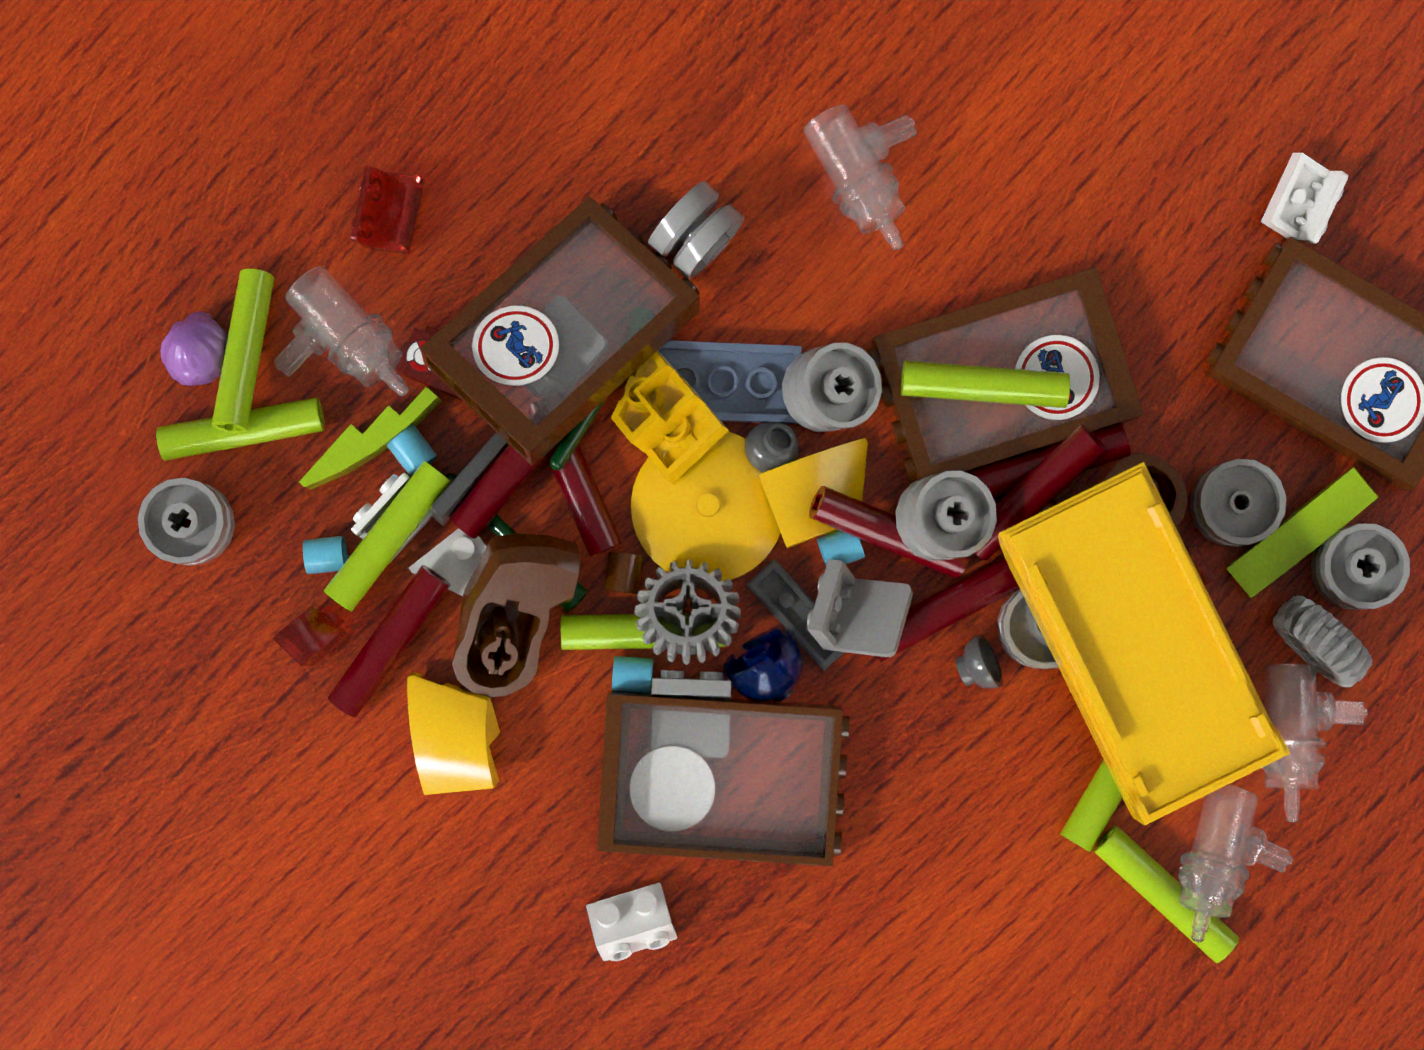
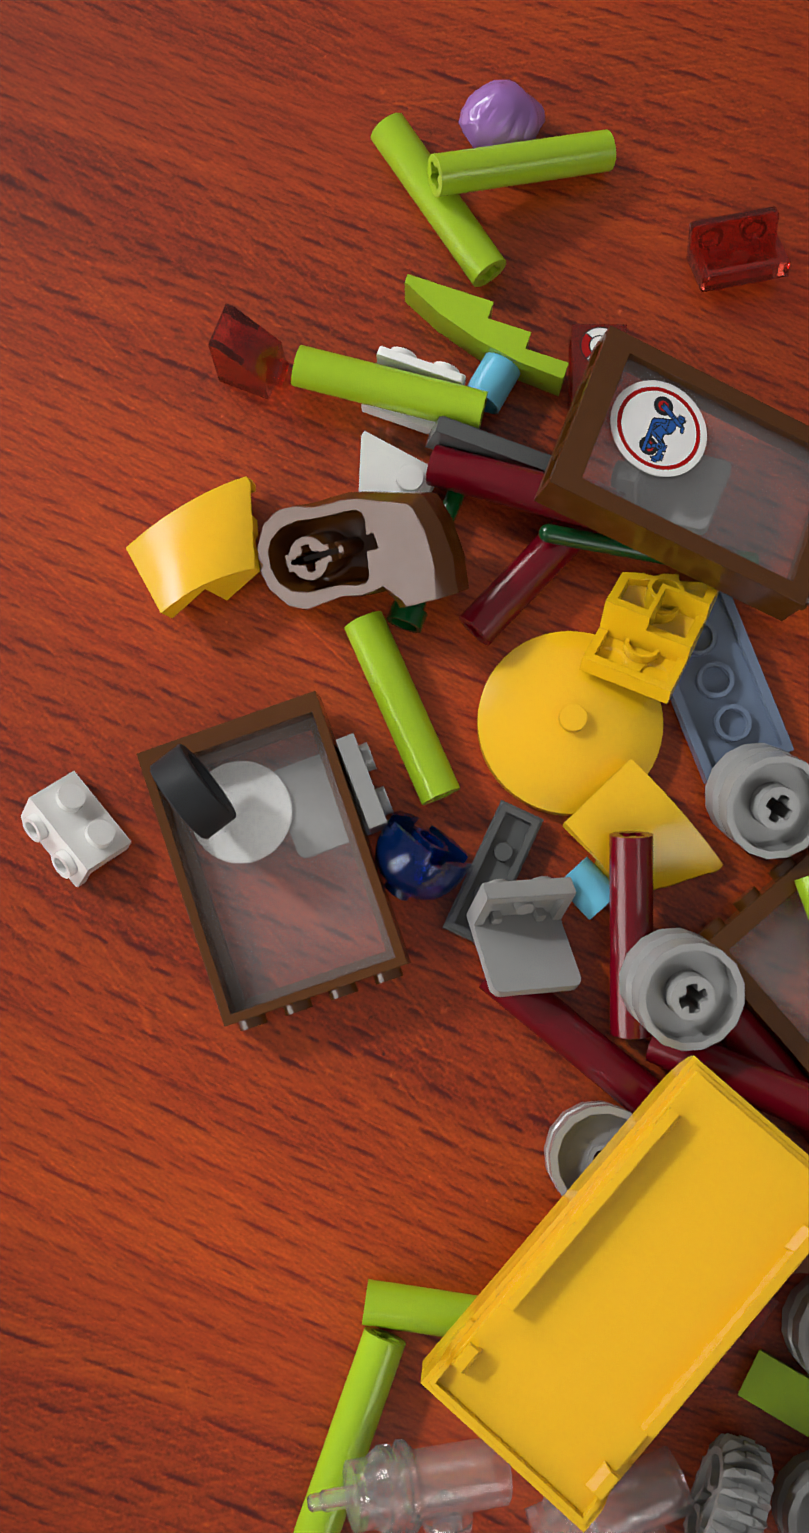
camera: 65 degrees right, 5 degrees down
(163, 519) = (315, 181): light grey wheel -> none
(324, 554) = (341, 335): medium azure beam -> none
(333, 319) = (586, 252): clear piece -> none
(388, 641) = (276, 440): dark red piece -> none
(623, 572) = (457, 660): reddish brown beam -> none
(632, 674) = (349, 714): medium azure beam -> none
(649, 818) = (192, 791): none -> black tyre
(672, 611) = (437, 706): light grey gear -> none
(771, 446) = (669, 762): dark grey piece -> none
(979, 664) = (524, 1102): dark grey piece -> none

